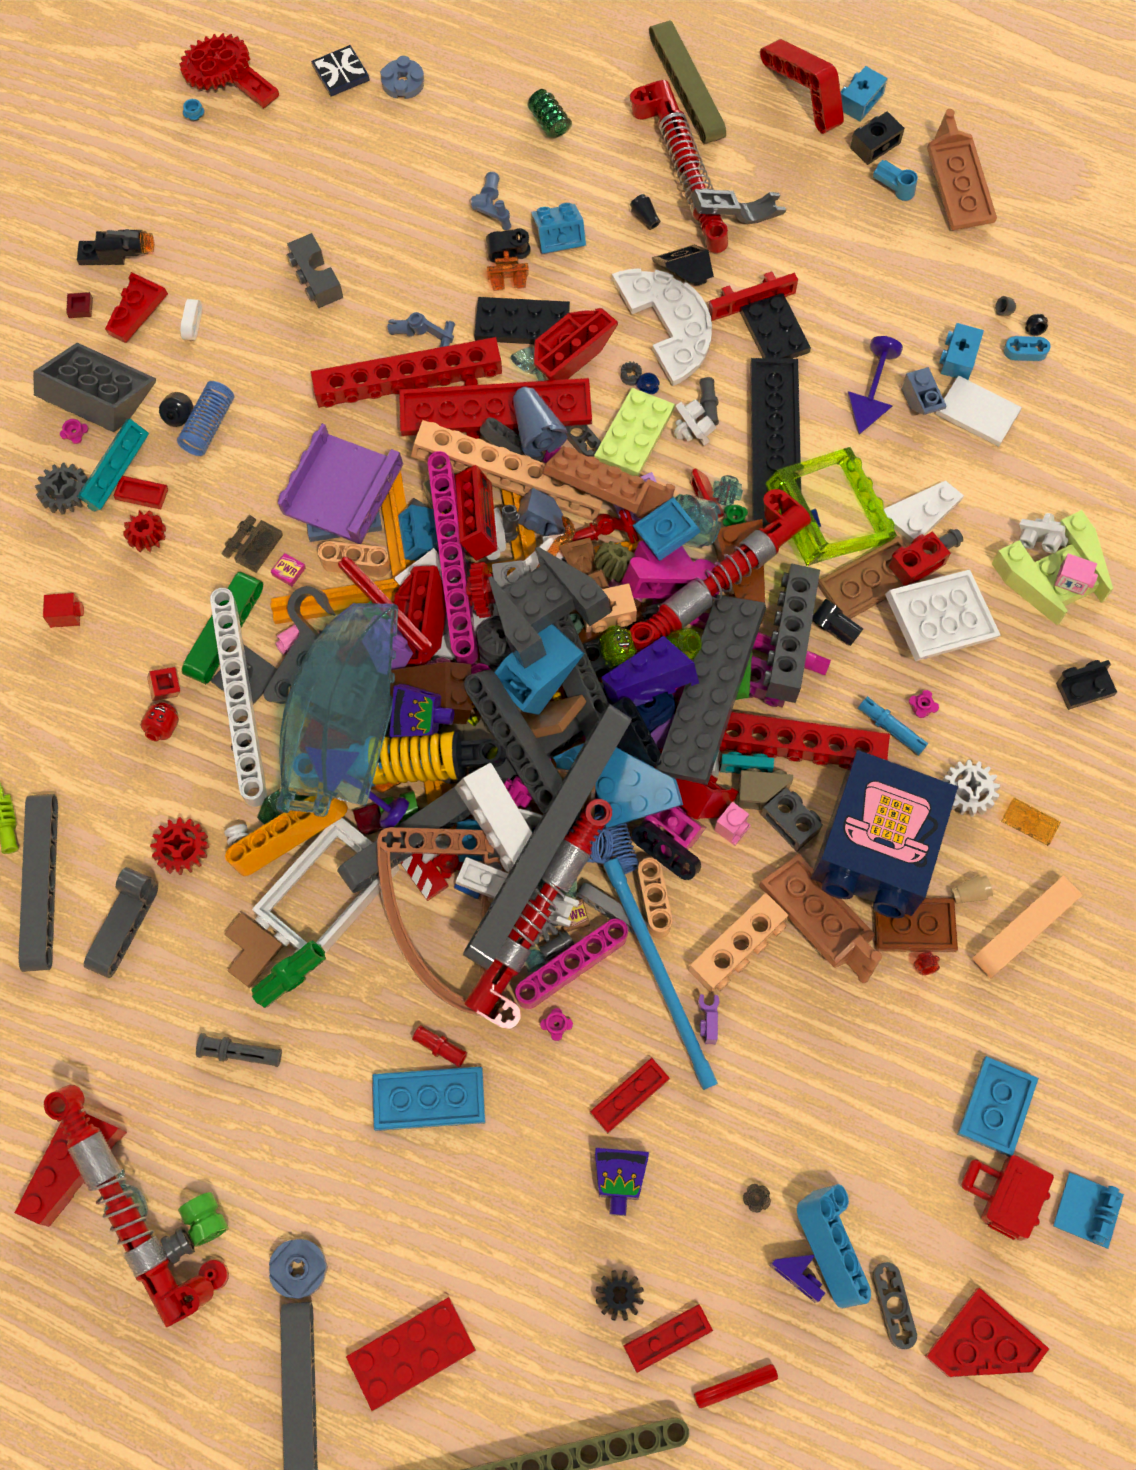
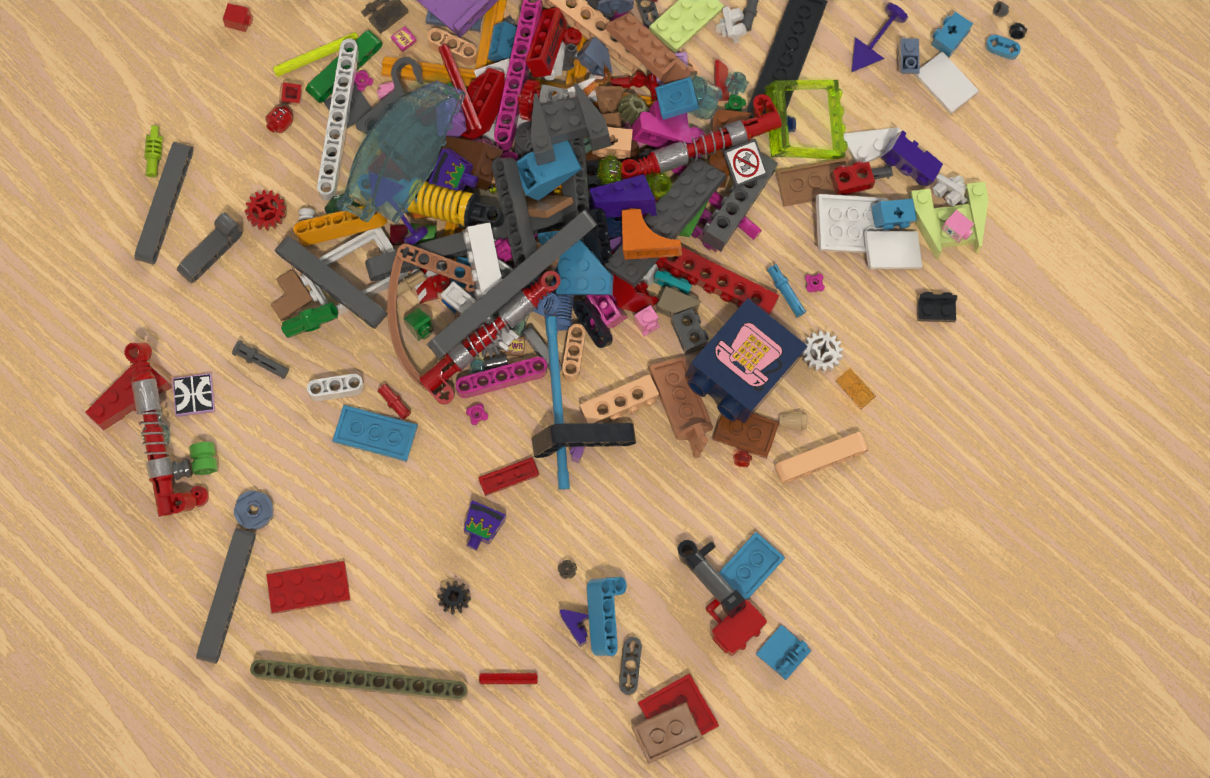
camera: 15 degrees right, 5 degrees up
(161, 1132) = (193, 395): none -> tile
(175, 628) = (311, 56): none -> neon yellow axle
(252, 631) = (362, 75): none -> dark pink plate
(301, 913) = (331, 282): none -> dark grey beam
(339, 1054) = (326, 384): none -> white beam
(407, 876) = (410, 282): none -> tan axle
(437, 929) = (419, 324): none -> green slope
(503, 496) = (572, 36): none -> red tile
(668, 1338) = (476, 635): red tile -> none
(698, 722) = (642, 242): none -> orange arch
(708, 1008) = (582, 435): none -> black beam
(783, 581) = (745, 162): none -> piece
(832, 619) = (774, 202): black piece -> none
(980, 512) = (911, 159): none -> dark purple wedge
(984, 1386) = (667, 732): none -> medium nougat tile
(987, 585) = (894, 213): none -> dark azure brick
(995, 1164) = (730, 599): none -> piece
(1004, 631) = (893, 250): none -> white tile

